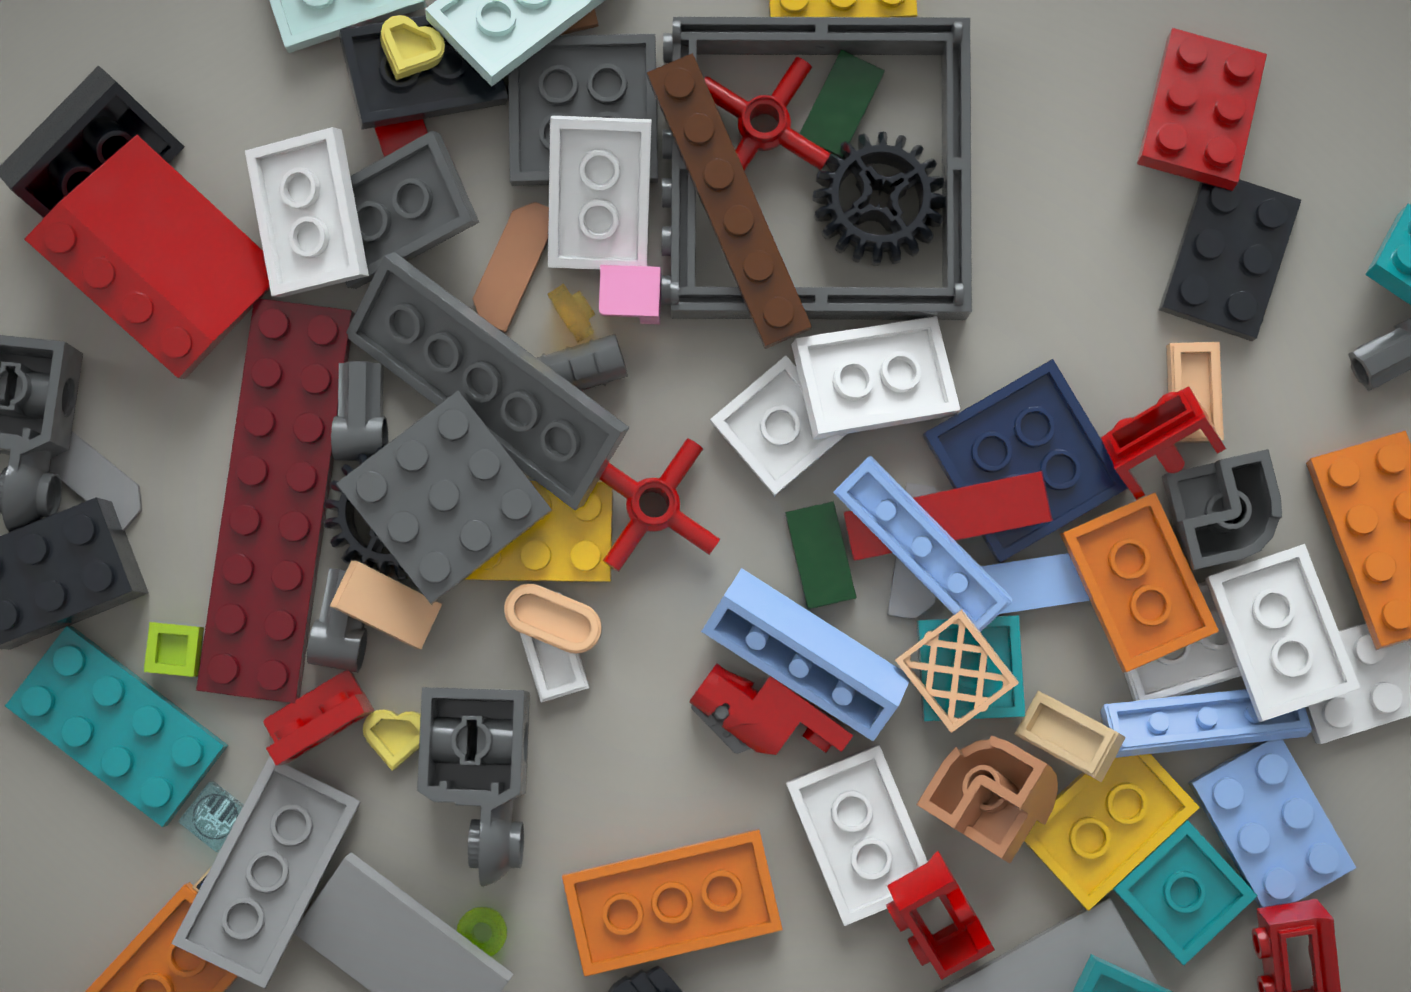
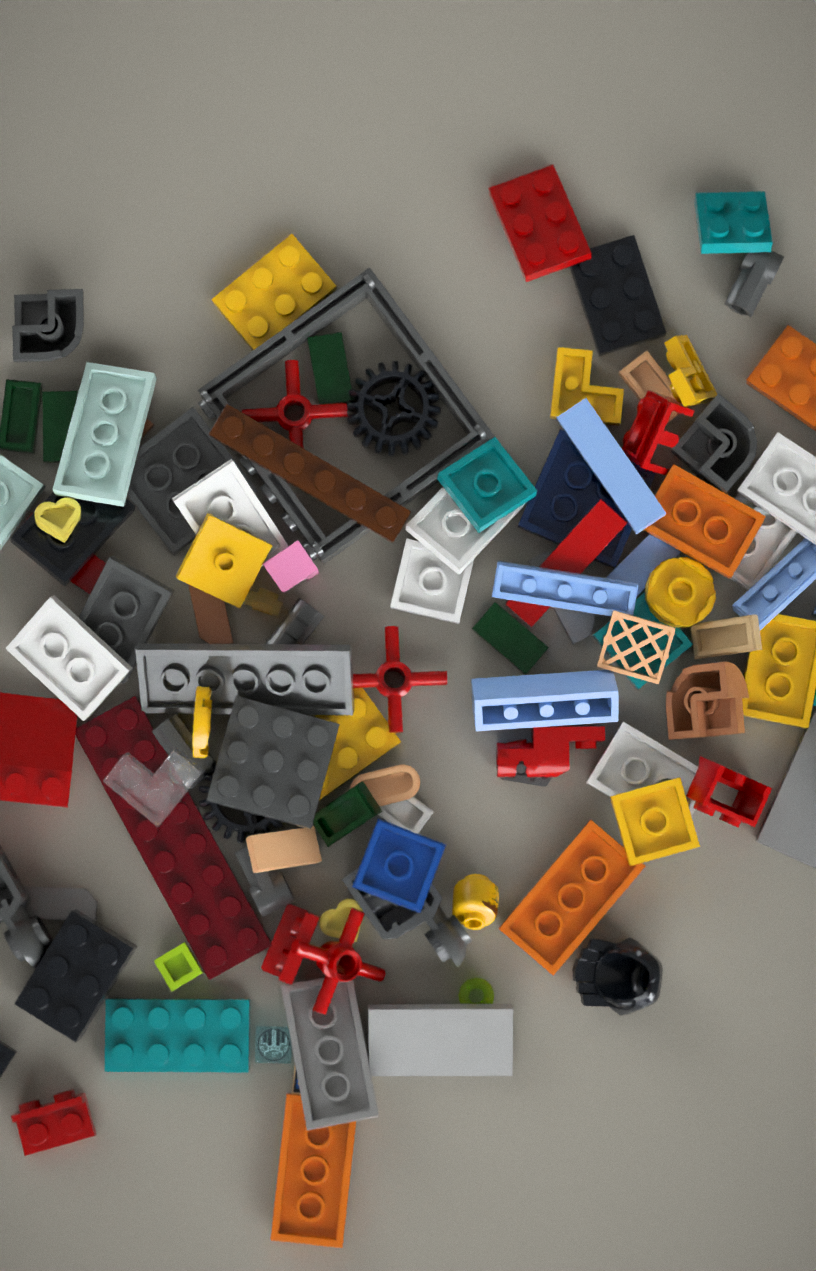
camera: 45 degrees left, 0 degrees up
(285, 432) = (154, 793): none -> clear plate
(347, 762) = (328, 956): none -> red bar
(396, 391) = (202, 722): none -> yellow tile
(485, 616) = (346, 814): none -> dark green tile
(496, 721) = (399, 865): none -> blue plate
(557, 825) = (475, 901): none -> yellow head
(559, 229) = (223, 560): none -> yellow plate
(830, 888) = (654, 821): none -> yellow plate
(921, 359) = (487, 484): none -> teal plate
(1054, 645) = (680, 592): none -> yellow tile
(1081, 443) = (611, 466): none -> light blue tile
(1097, 337) = (573, 386): none -> yellow plate
(1246, 406) = (690, 380): none -> yellow plate

